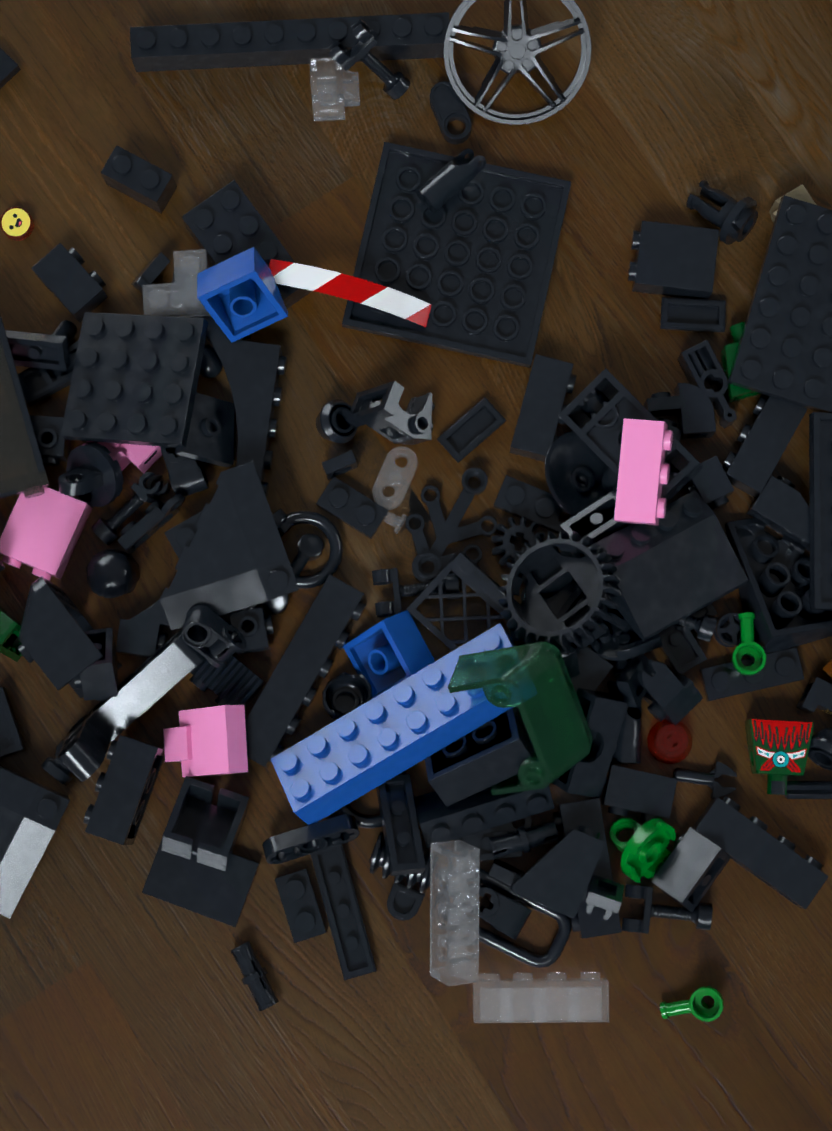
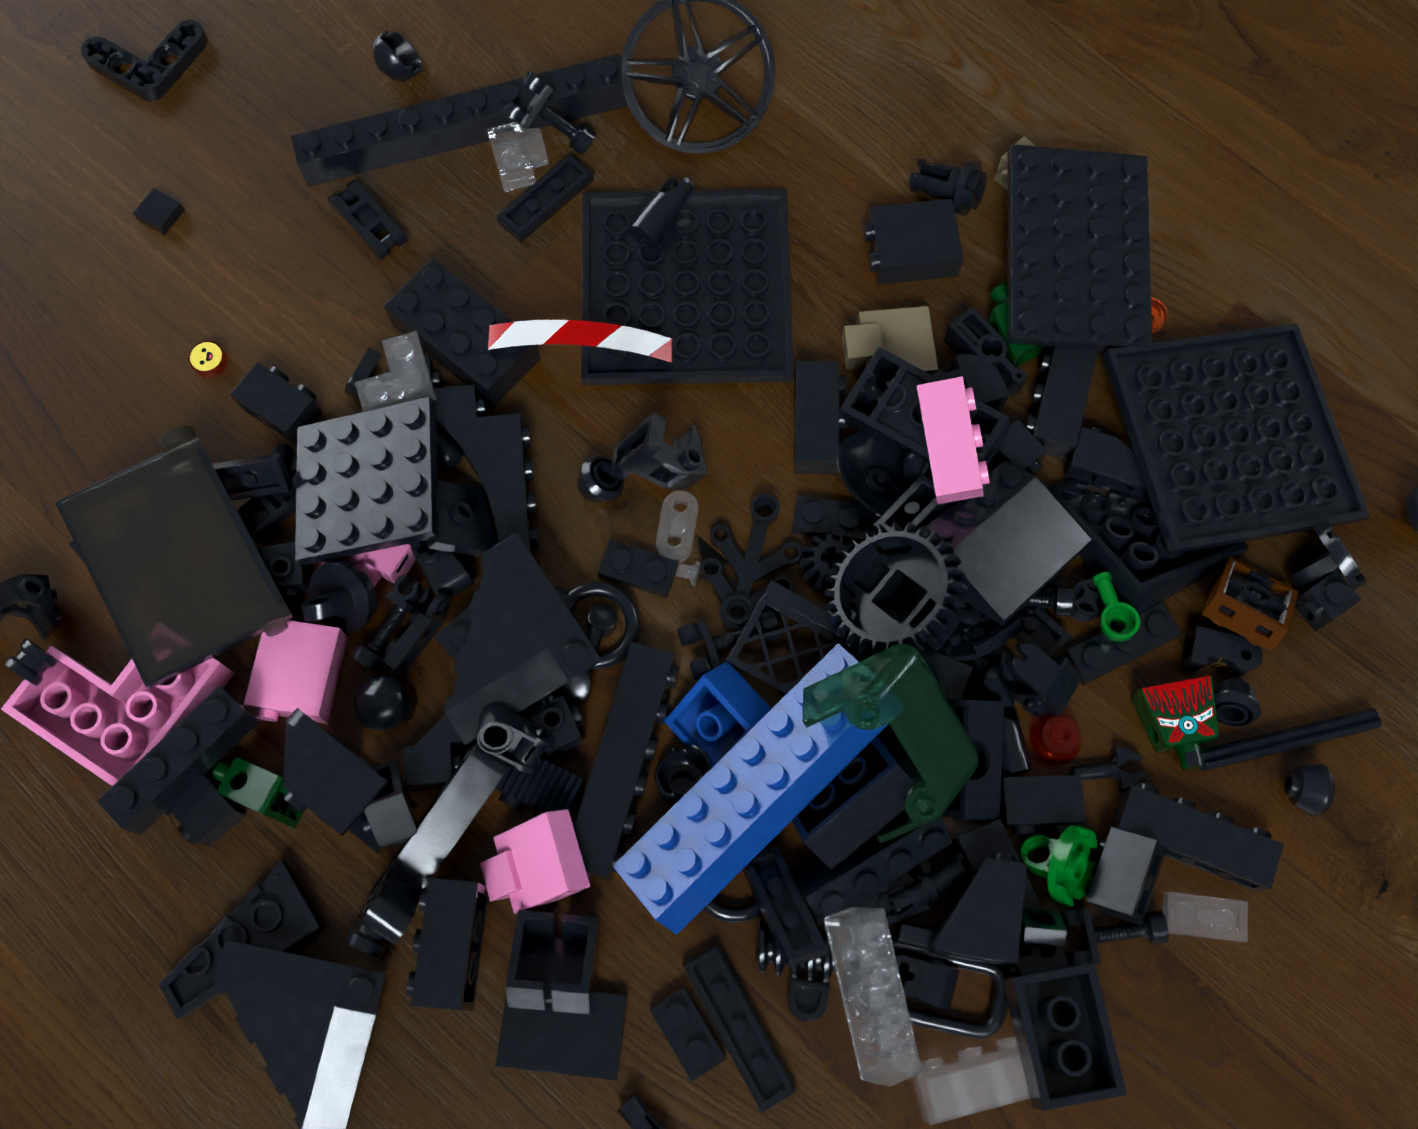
camera: 15 degrees left, 10 degrees down
(139, 179) = (331, 283): black brick -> none
(183, 120) = (367, 219): none -> black plate
(241, 295) = (465, 365): blue slope -> none
(310, 839) = (681, 950): black beam -> none
(339, 465) = (613, 524): black tile -> none
(350, 135) = (545, 198): none -> black tile
(447, 108) = (639, 149): black piece -> none
(471, 429) = (747, 457): black tile -> none
(596, 982) = (1064, 1037): none -> black brick
(629, 353) = (899, 331): none -> dark tan piece
(693, 314) = (948, 290): black tile -> none
(696, 1005) = (1178, 1036): green bar -> none
(747, 918) = (1206, 917): none -> clear plate

